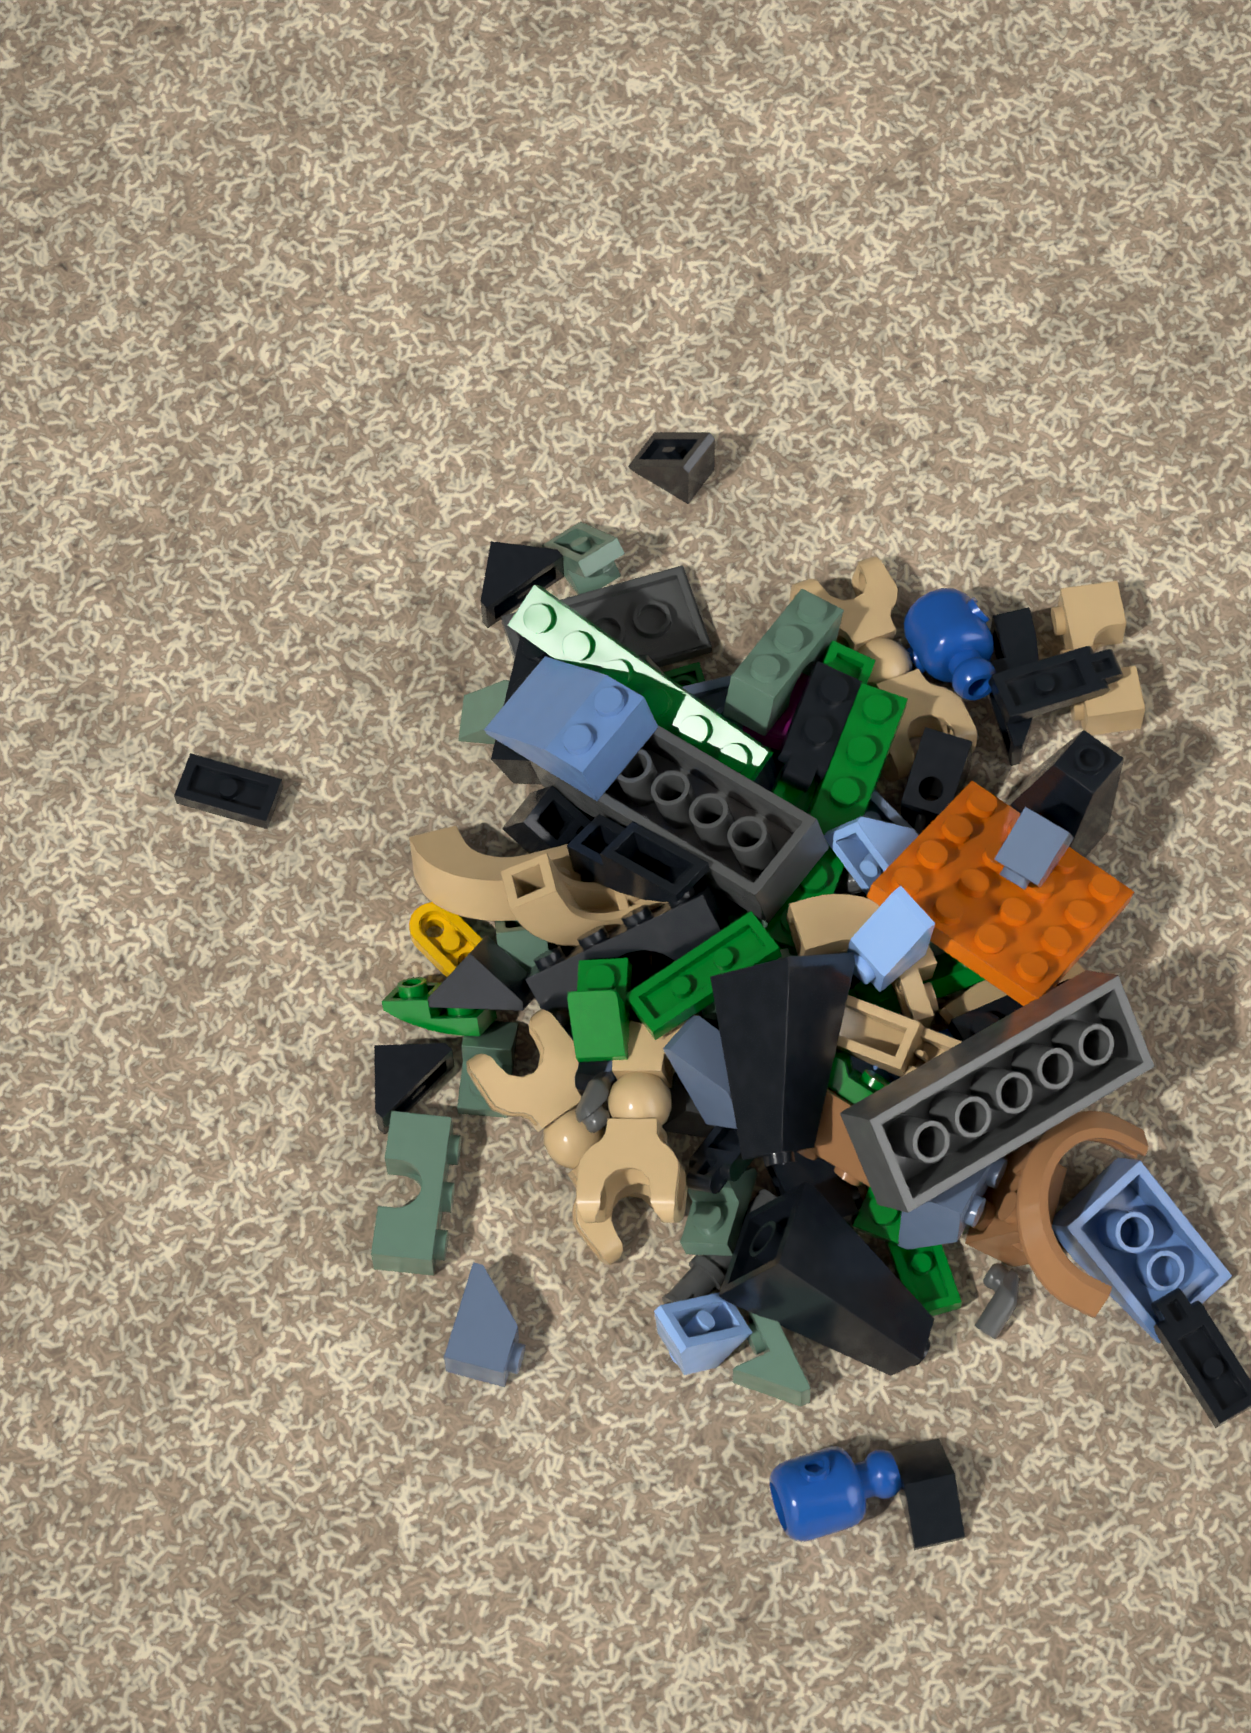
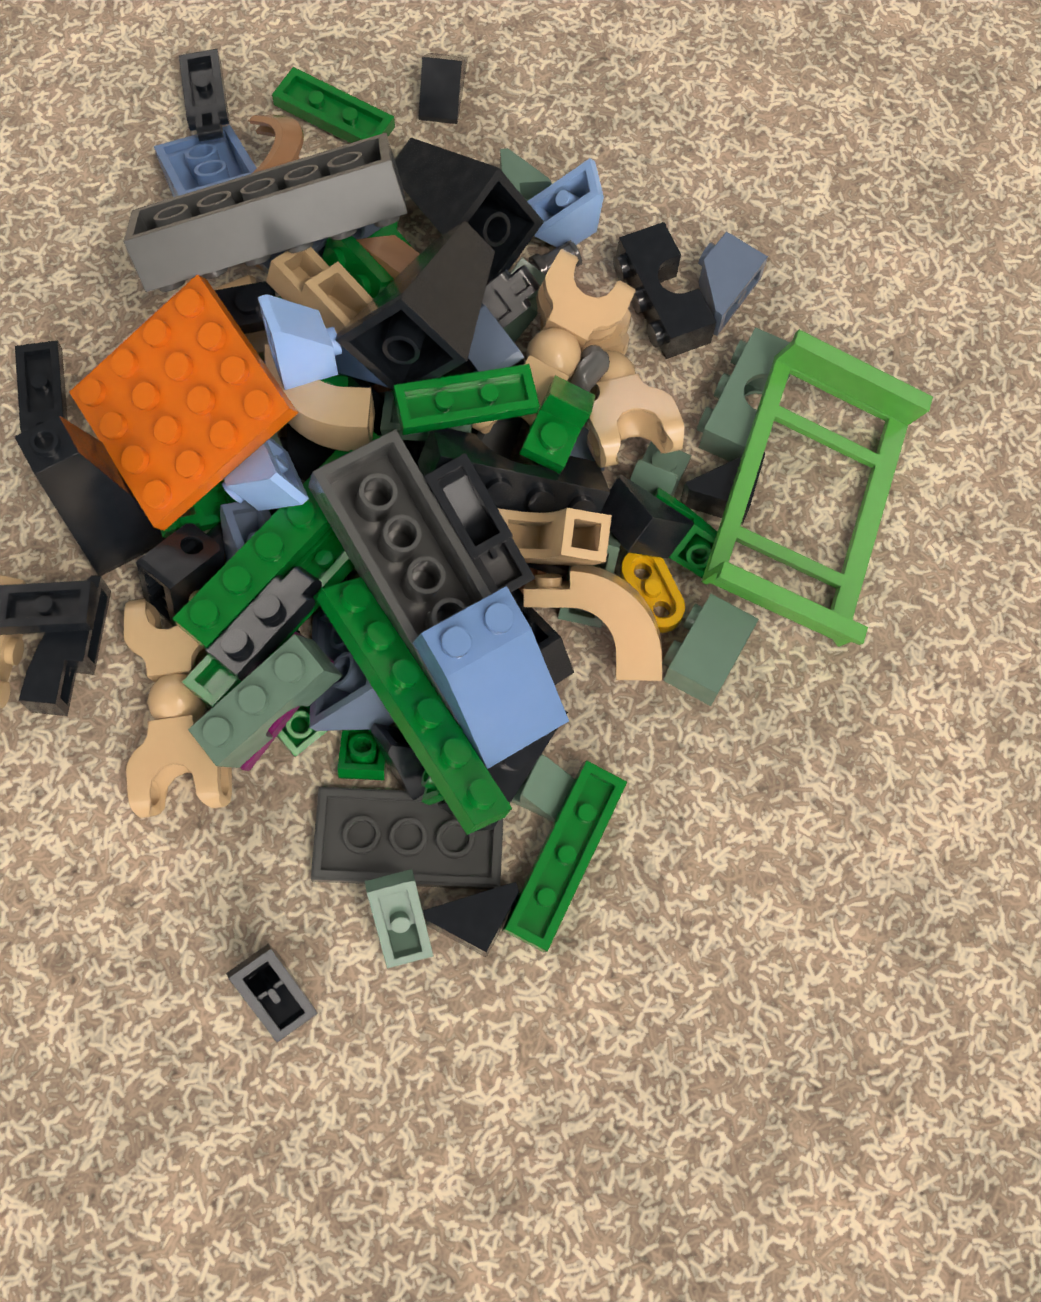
camera: 165 degrees left, 5 degrees up
(228, 791) = (807, 799): black plate -> none
(294, 947) = (865, 389): none -> bright green piece
(371, 899) = (709, 649): none -> sand green brick
(448, 662) = (564, 856): none -> green plate
(528, 1257) = (673, 319): none -> black arch
(828, 1490) = (518, 90): blue piece -> none
(951, 641) = (104, 697): blue piece -> none
(1032, 849) = (132, 408): sand blue slope -> none
(1041, 1397) = (330, 108): none -> green plate
(1189, 930) = (40, 383): none -> black hinge

